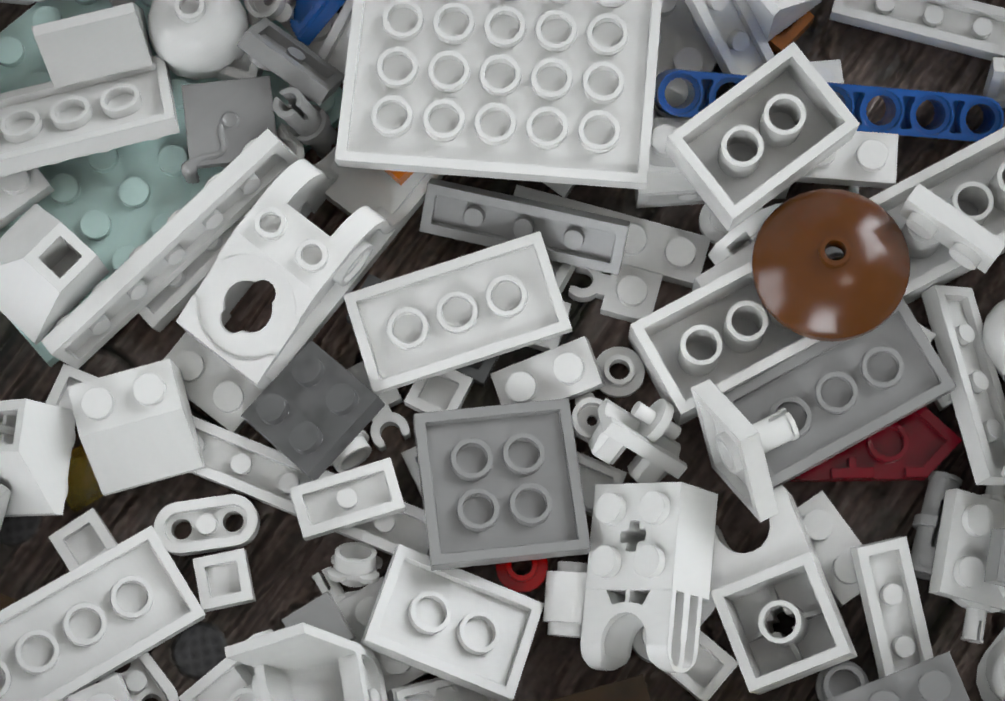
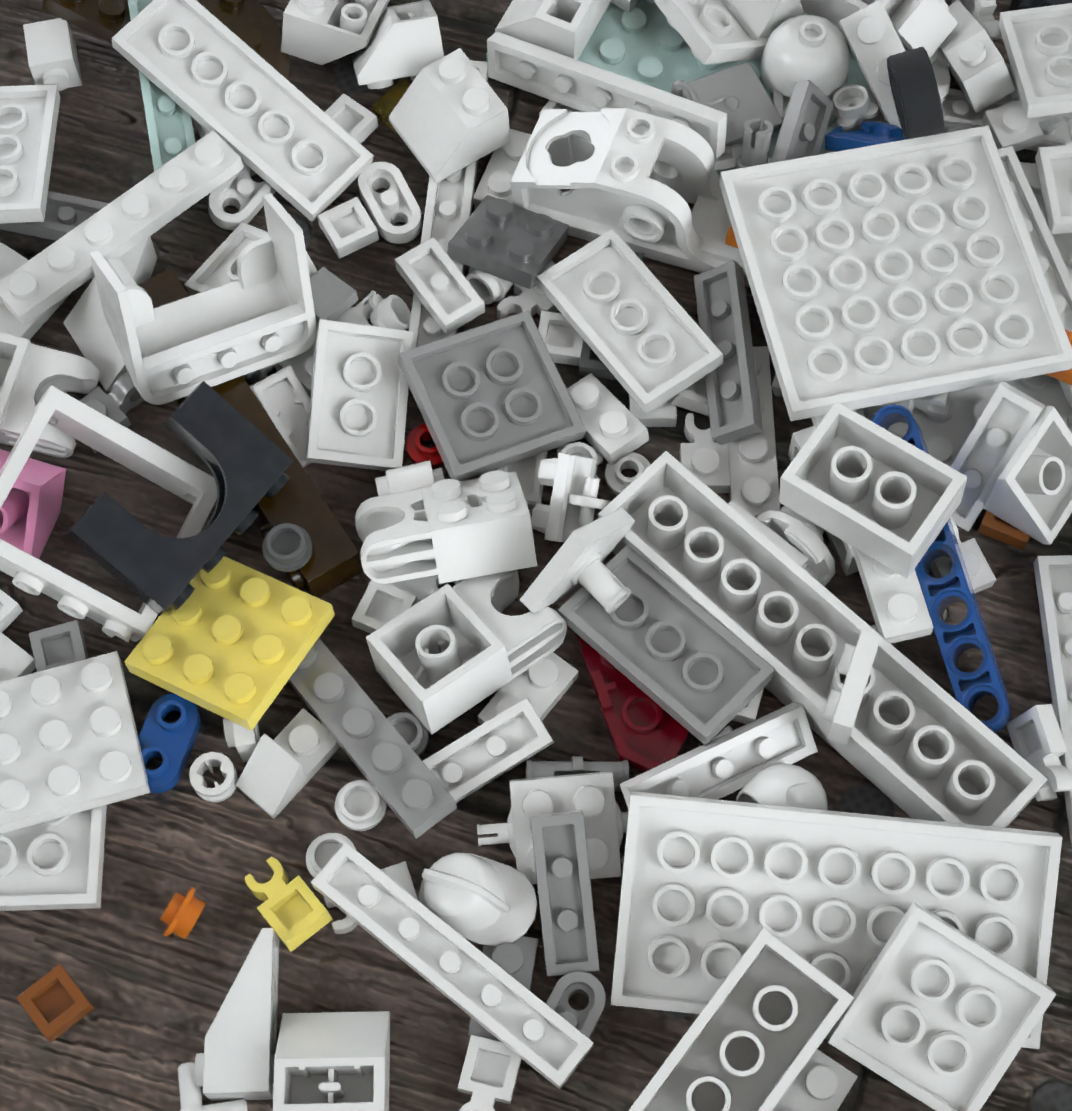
camera: 70 degrees right, 10 degrees down
(824, 295) = (776, 623): reddish brown dish -> none

